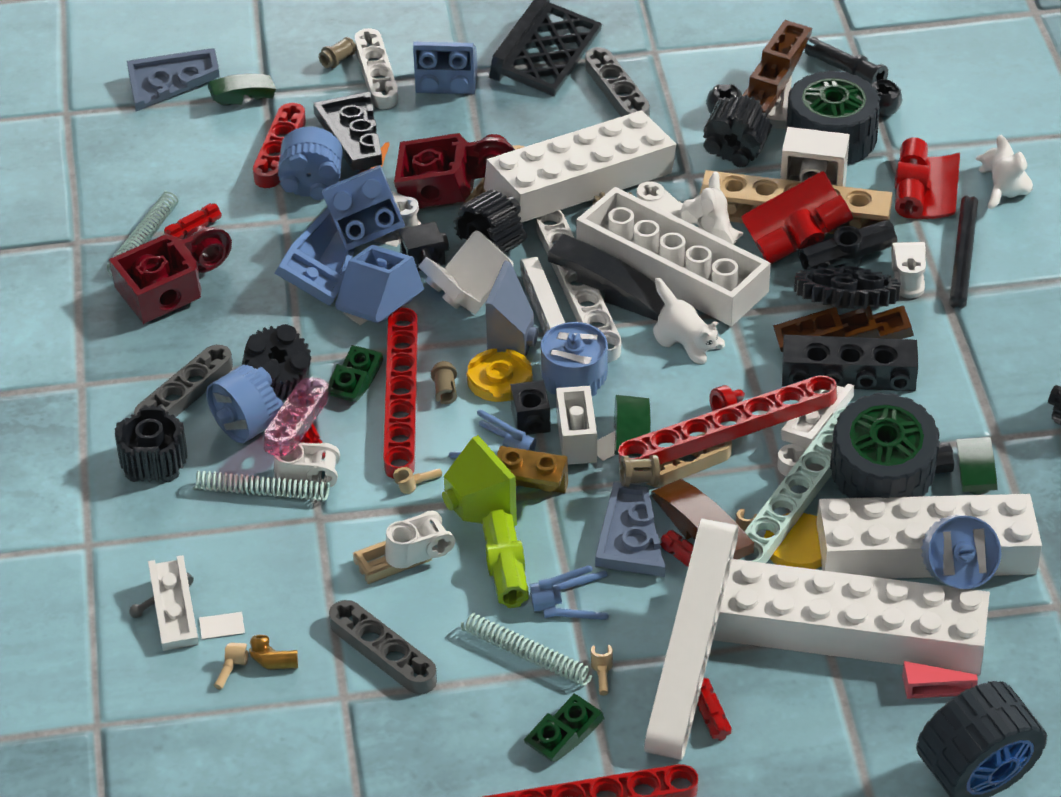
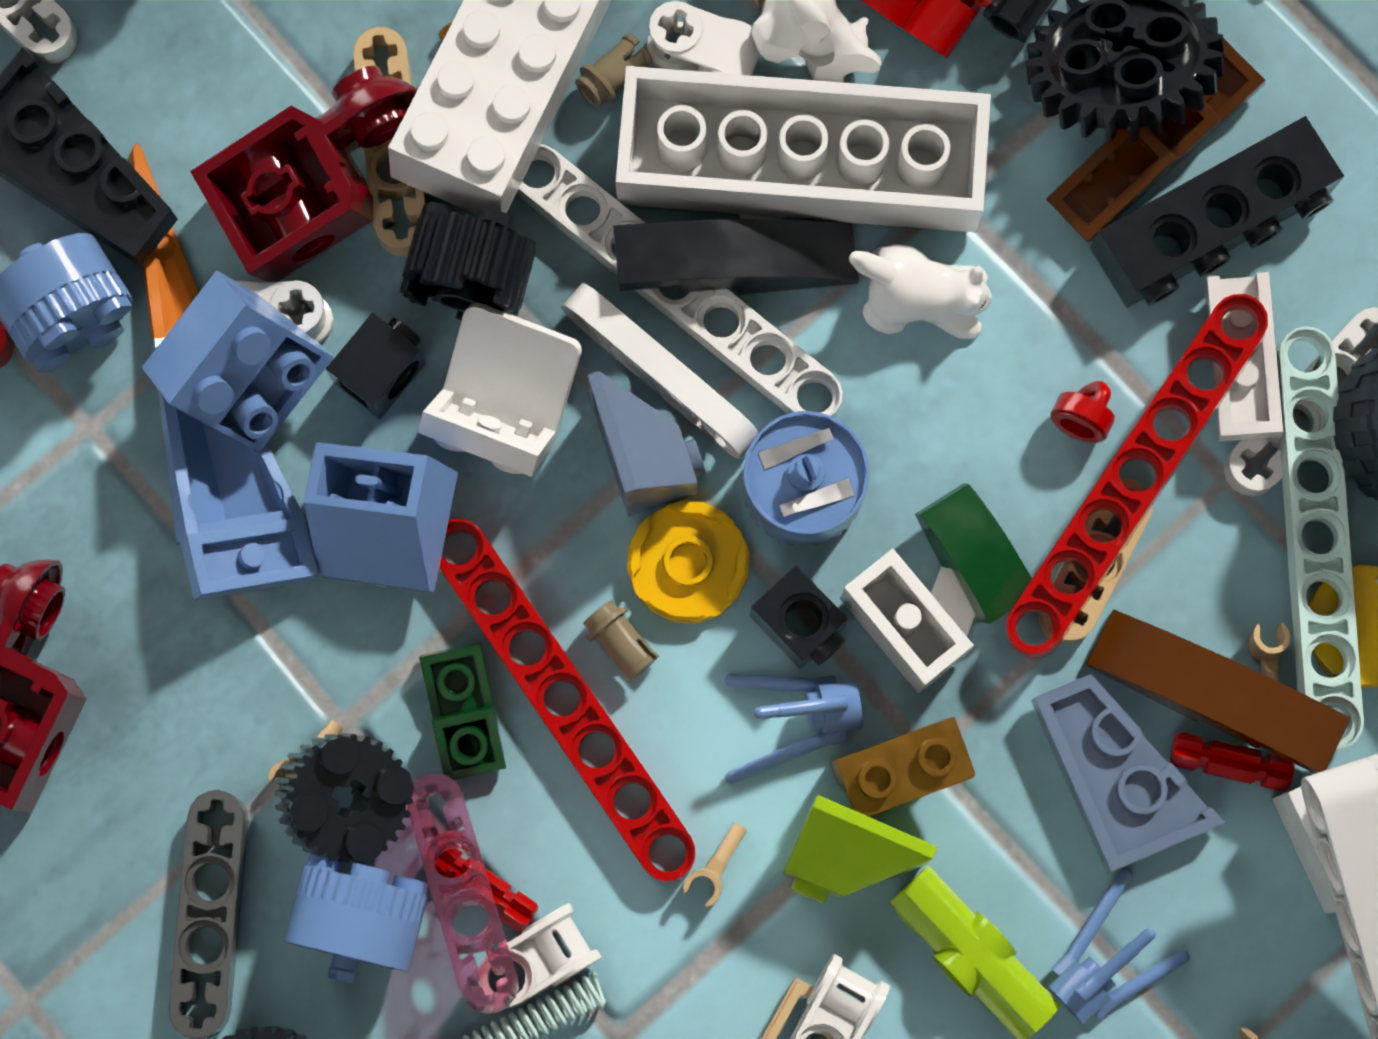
camera: 35 degrees left, 35 degrees up
(630, 470) = (1074, 666): dark tan bush -> none

